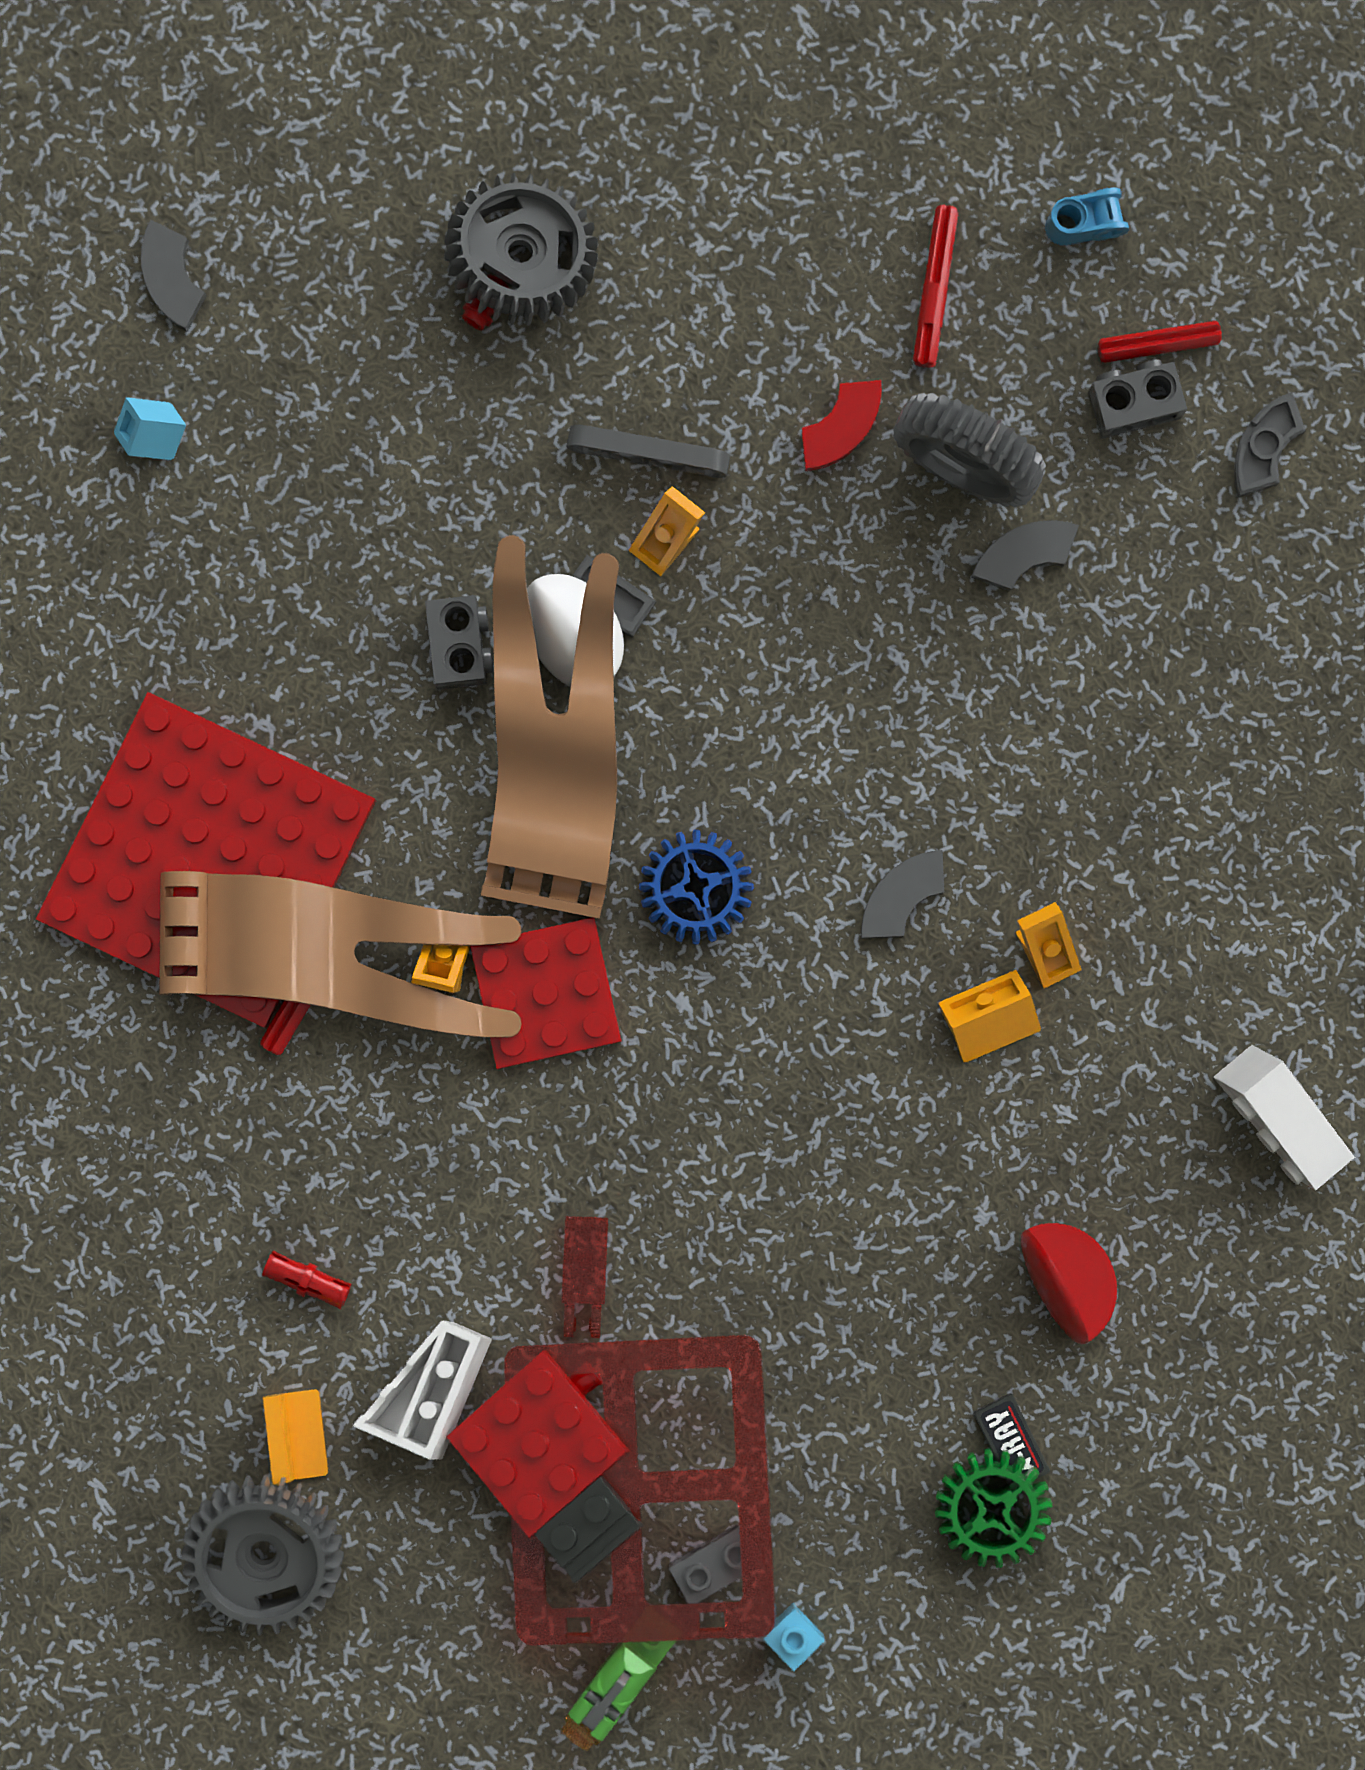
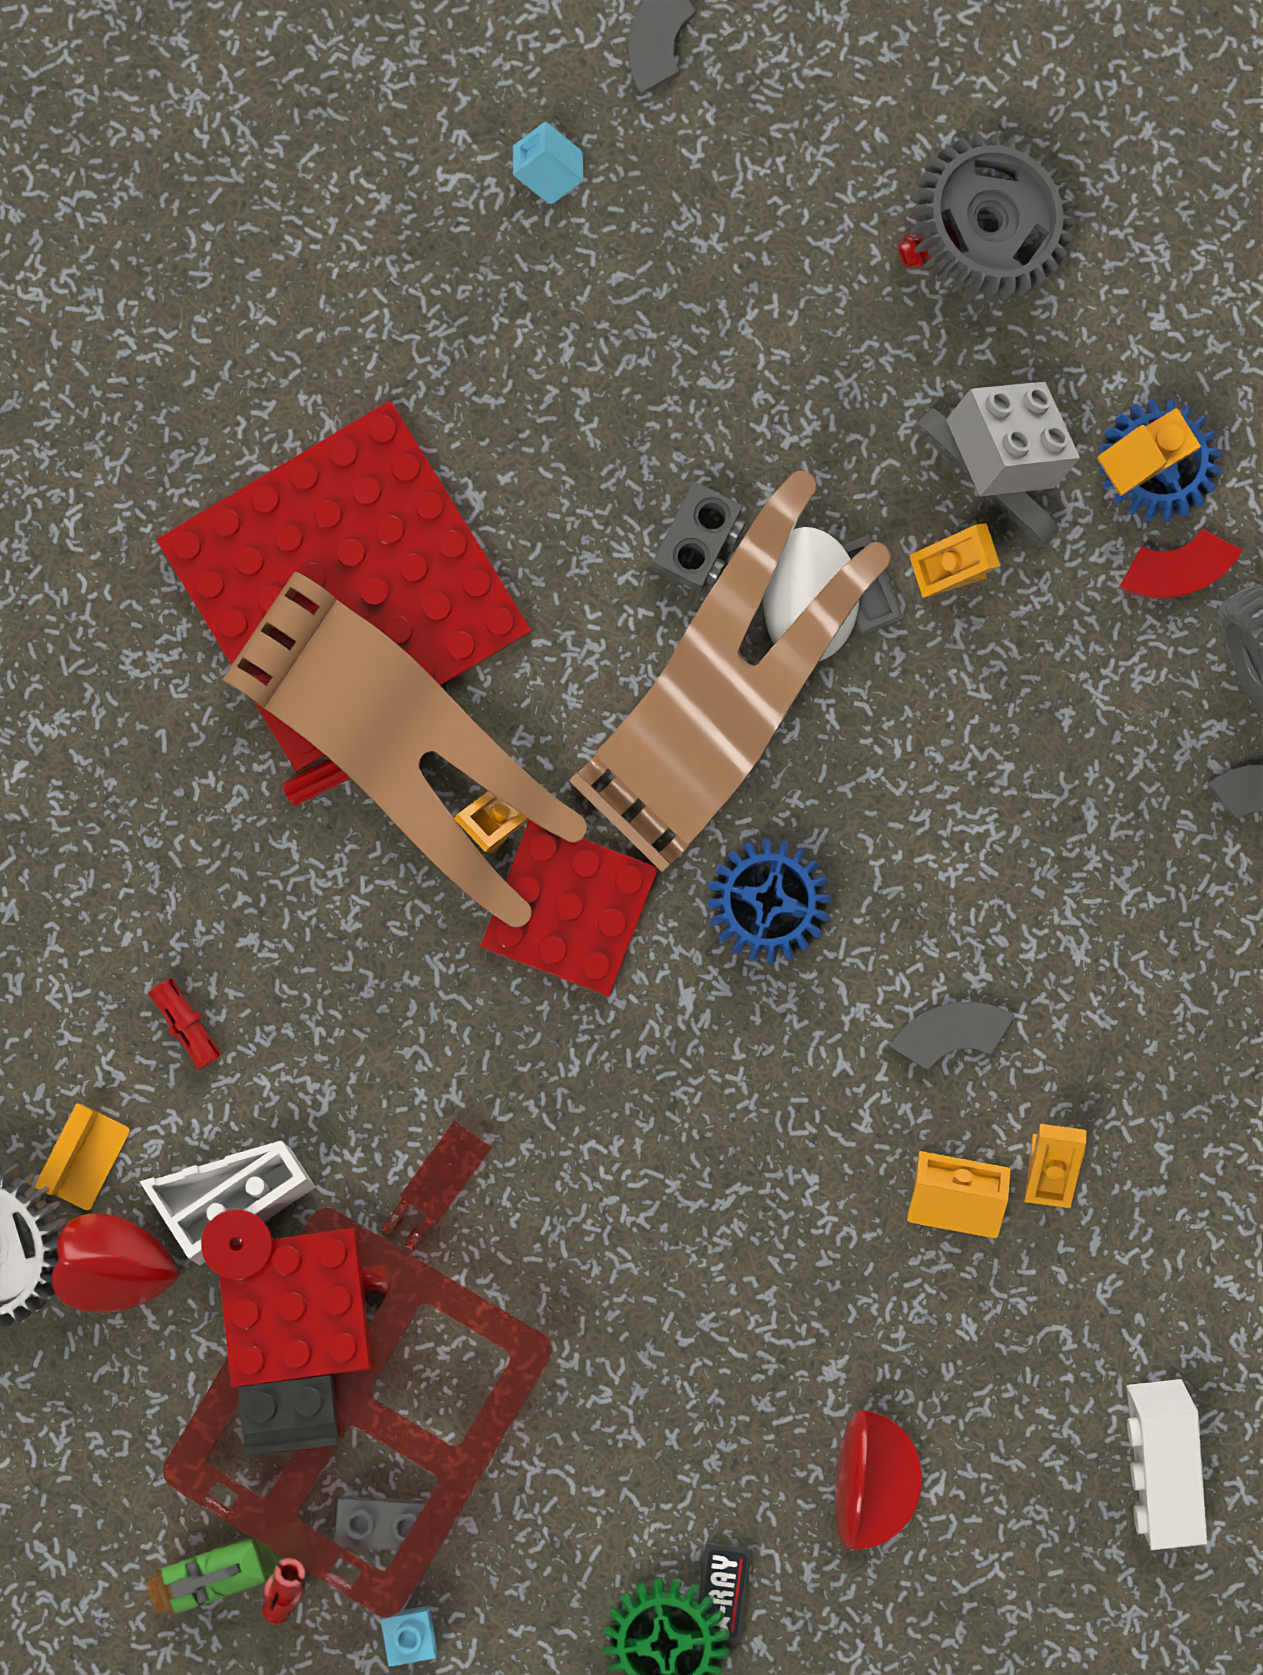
camera: 30 degrees right, 0 degrees up
(372, 1505) = (110, 1265): none -> red piece
(459, 1424) = (236, 1244): none -> red piece
(649, 408) = (1012, 438): none -> light grey brick
(673, 1668) = (283, 1591): none -> red pin
(760, 350) = (1148, 451): none -> light orange slope
(785, 362) = (1168, 478): none -> blue gear

